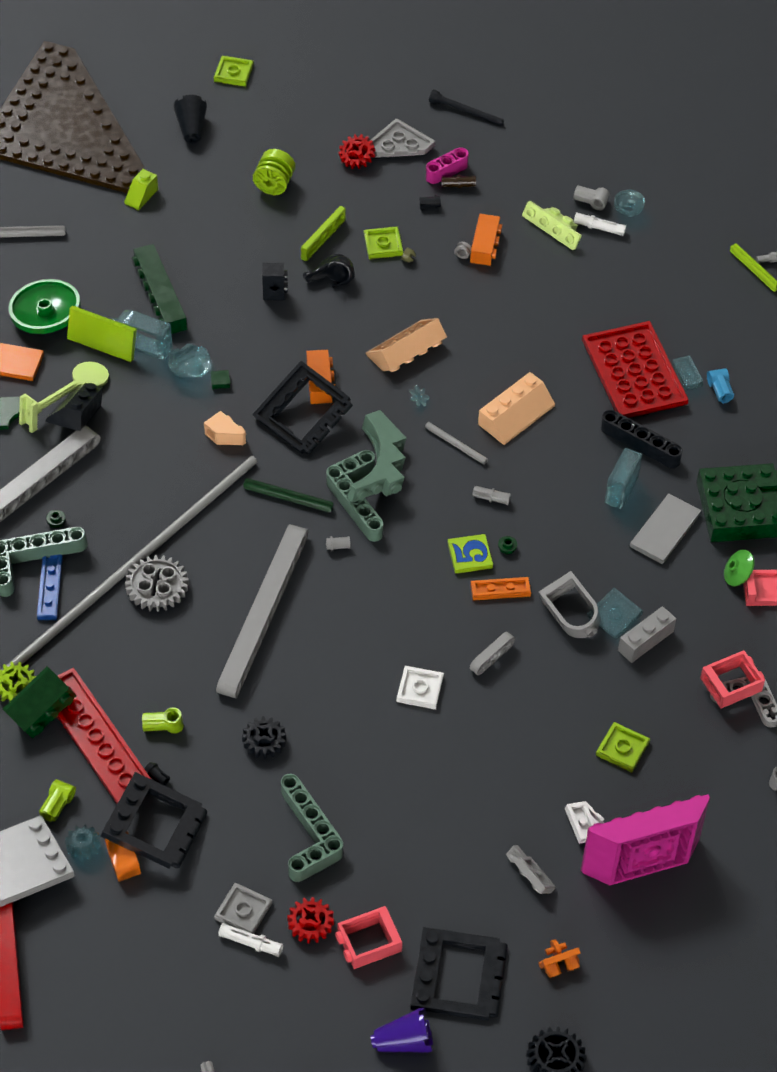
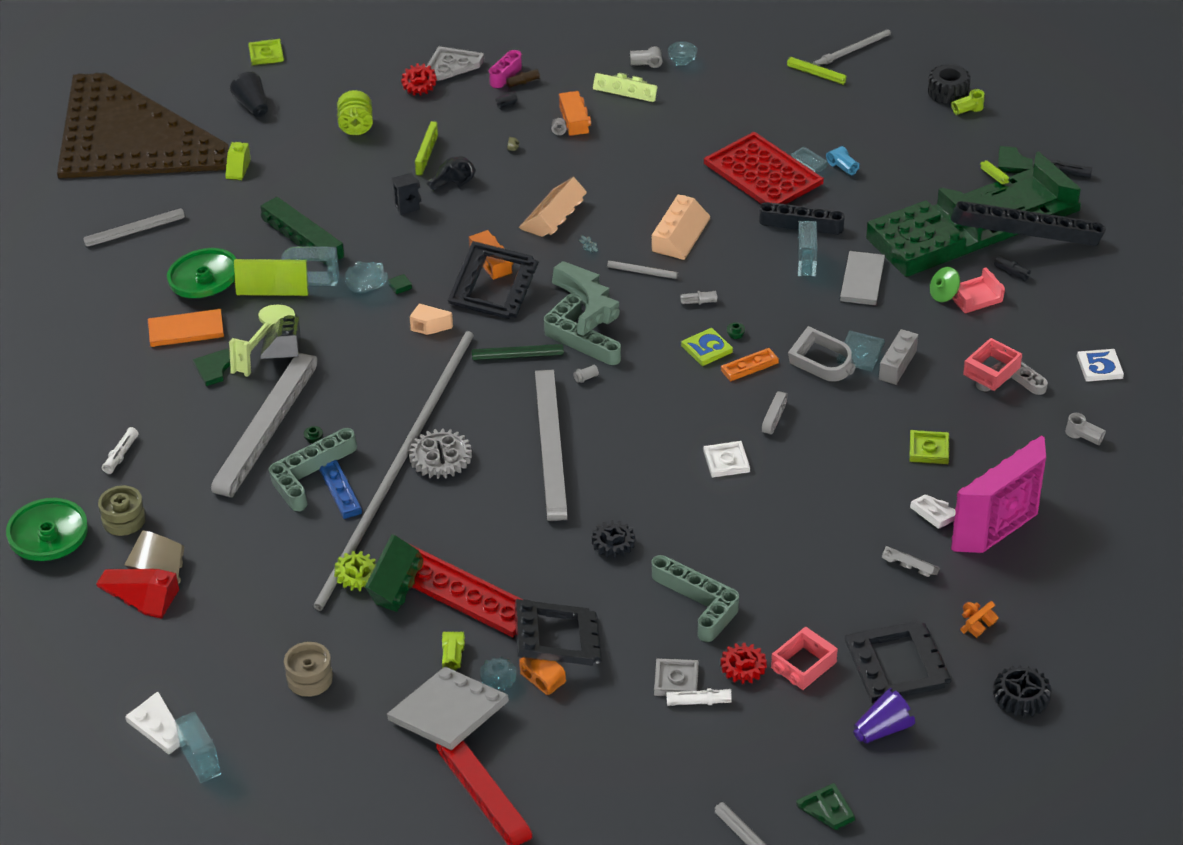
camera: 20 degrees left, 10 degrees down
(156, 773) = (531, 596): black pin -> none
(163, 721) = (519, 555): lime piece -> none
(383, 242) = (483, 141): lime tile -> none
(436, 97) = (464, 23): black piece -> none
(604, 225) = (666, 75): white pin -> none

